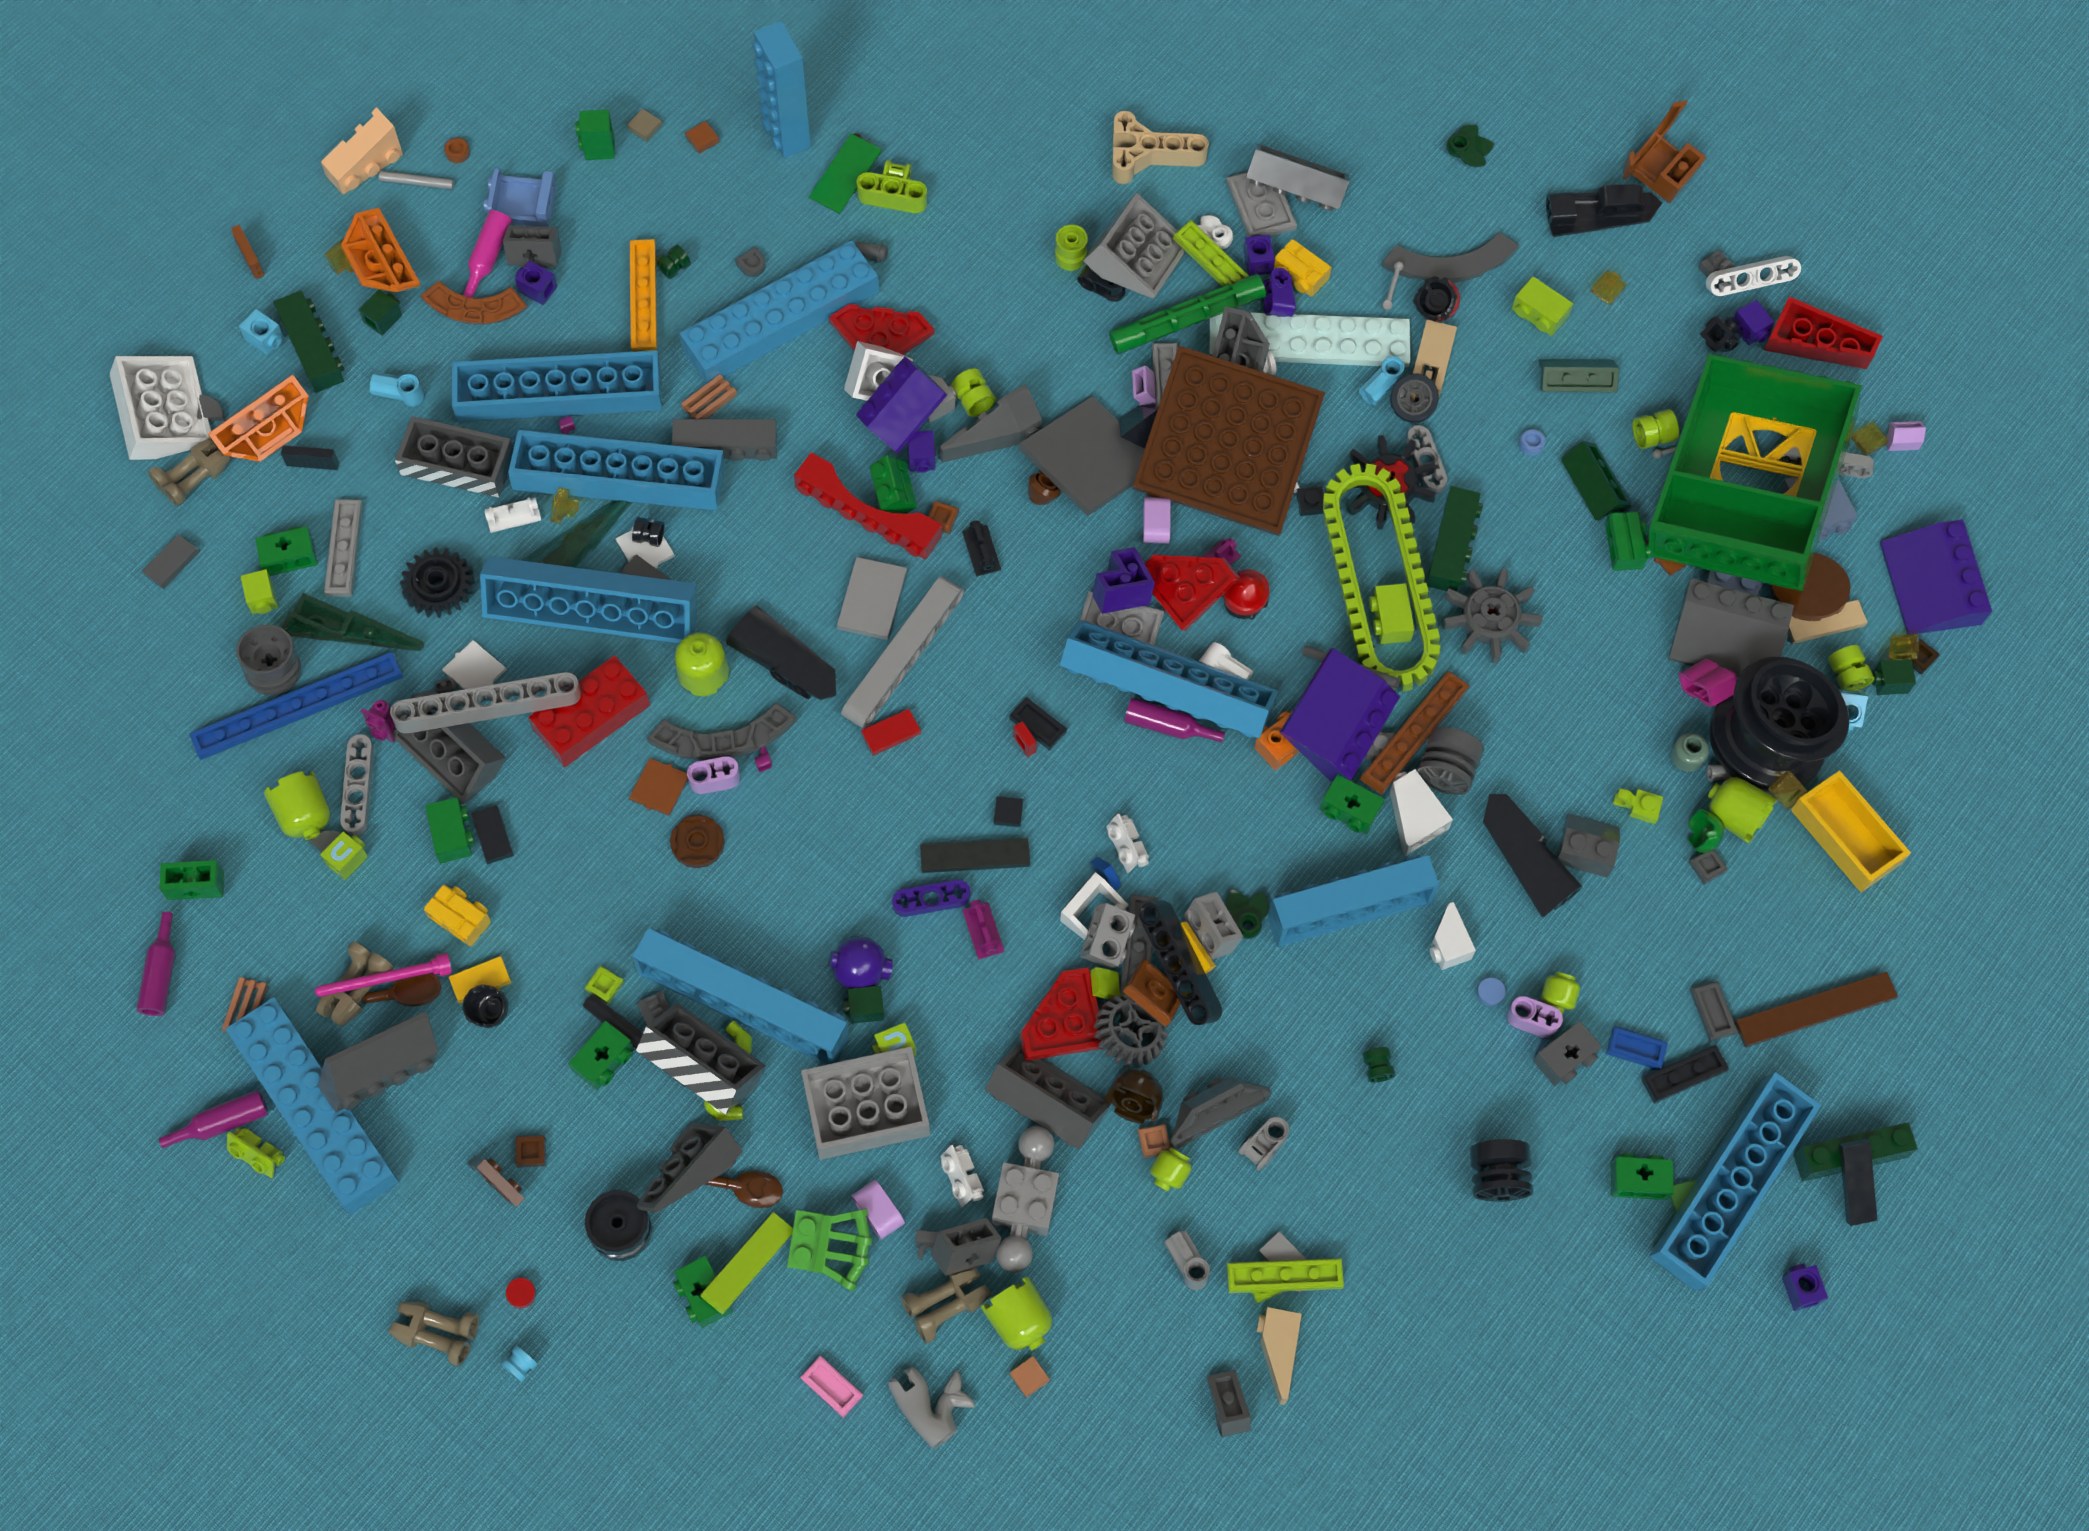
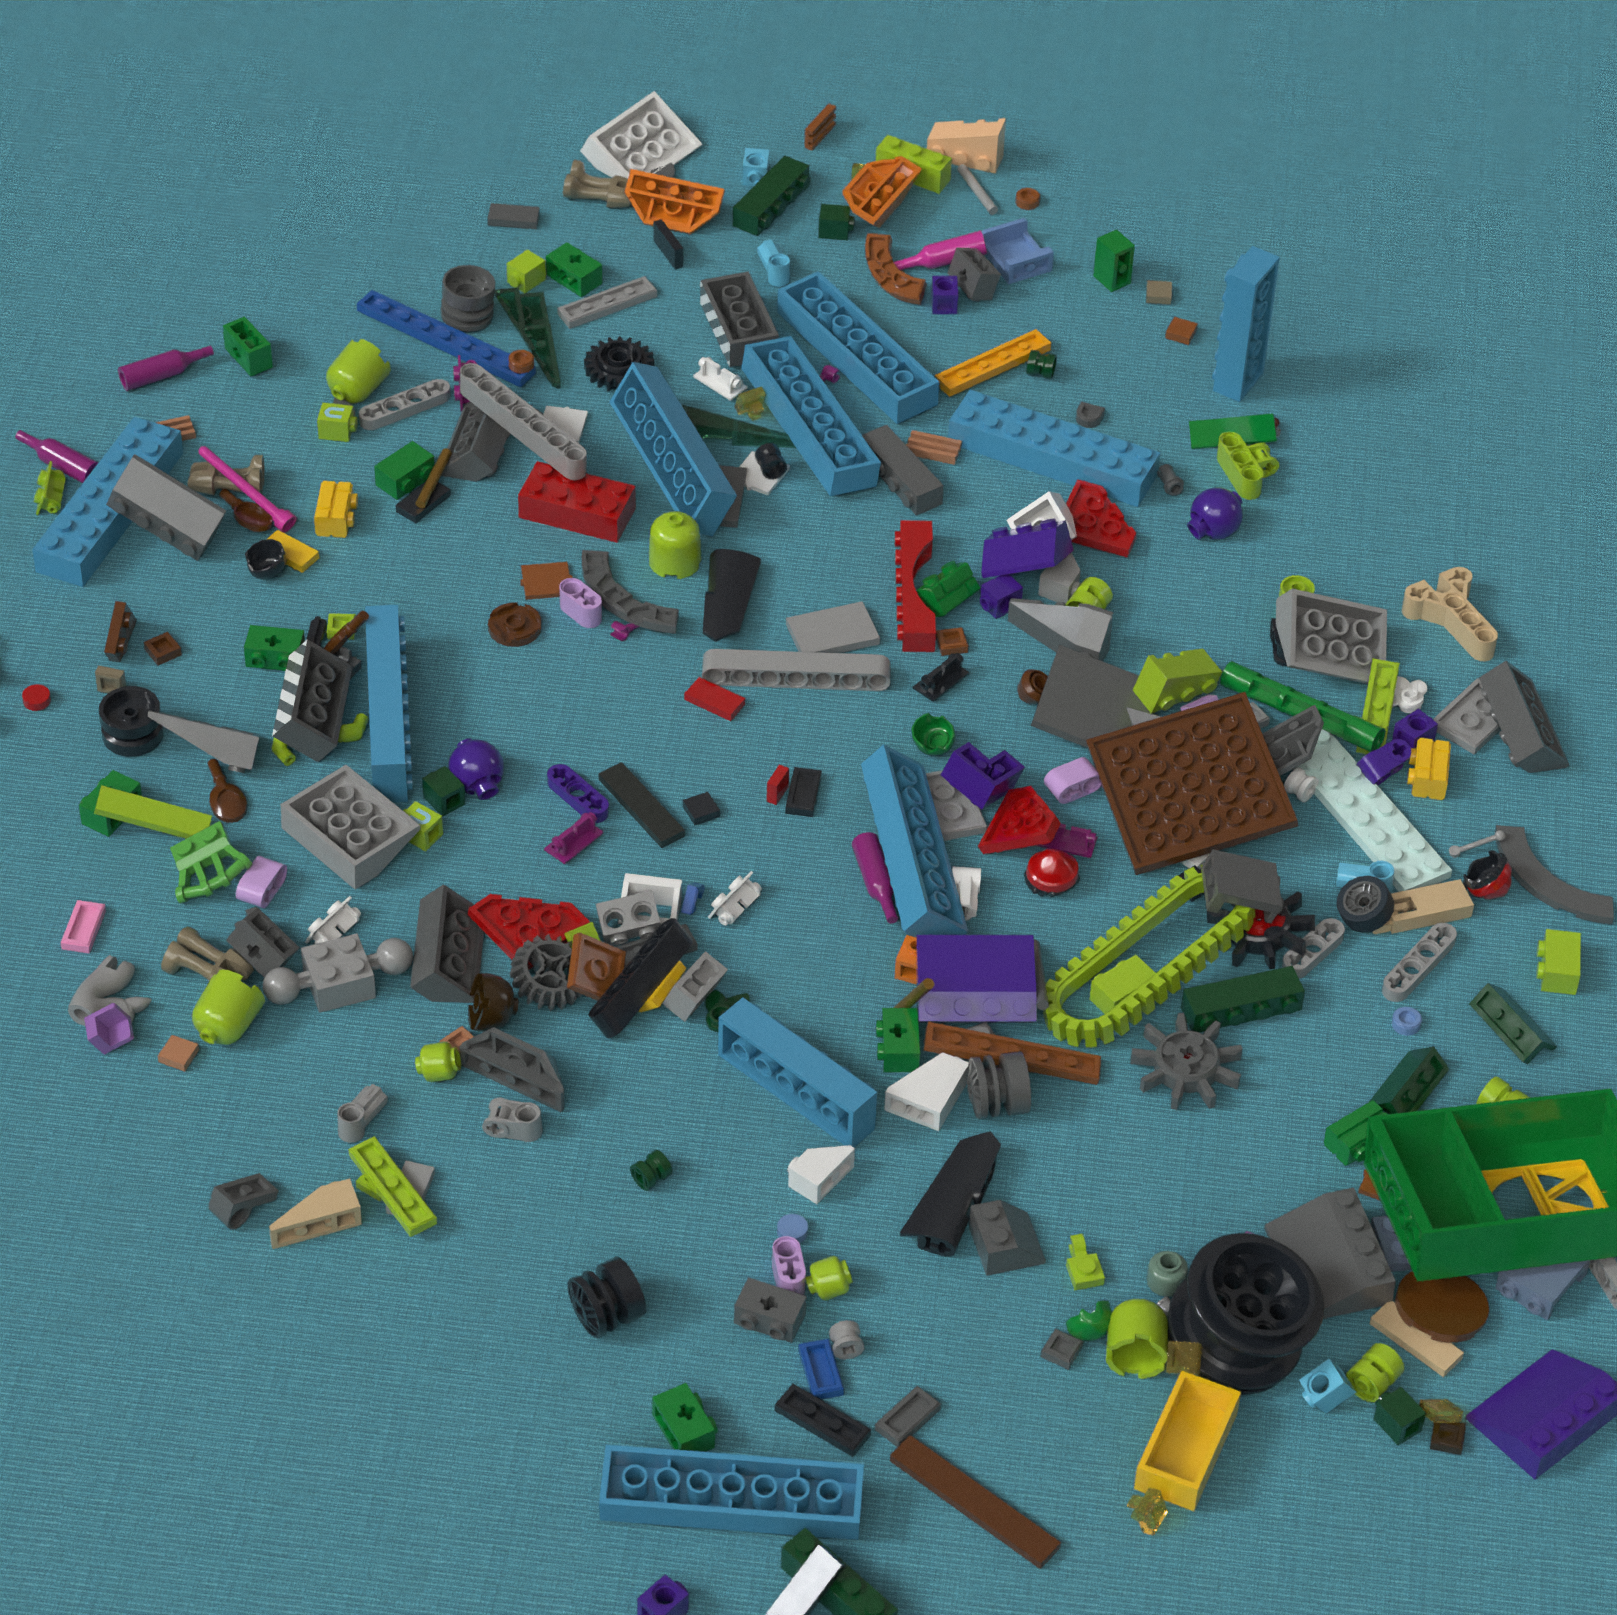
camera: 60 degrees right, 20 degrees down
(337, 213) = (934, 165): none -> lime brick
(381, 660) = (521, 361): none -> dark orange tile
(478, 811) = (433, 478): none -> pearl gold bar
(549, 1218) = (109, 679): none -> dark tan tile
(632, 994) = (346, 632): none -> reddish brown piece
(938, 243) = (1215, 514): none -> dark purple brick
(978, 1424) = (109, 1028): none -> medium lavender panel
(1047, 591) = (933, 734): none -> green hair
(1106, 383) = (1176, 679): none -> lime wedge
(1335, 772) = (916, 994): none -> pearl gold bar
(1371, 472) = (1242, 883): none -> dark grey panel
(1486, 396) = (1418, 961): none -> light grey beam
(1625, 1014) = (846, 1339): none -> light grey wheel
(1890, 895) = (1148, 1510): none -> clear yellow tile

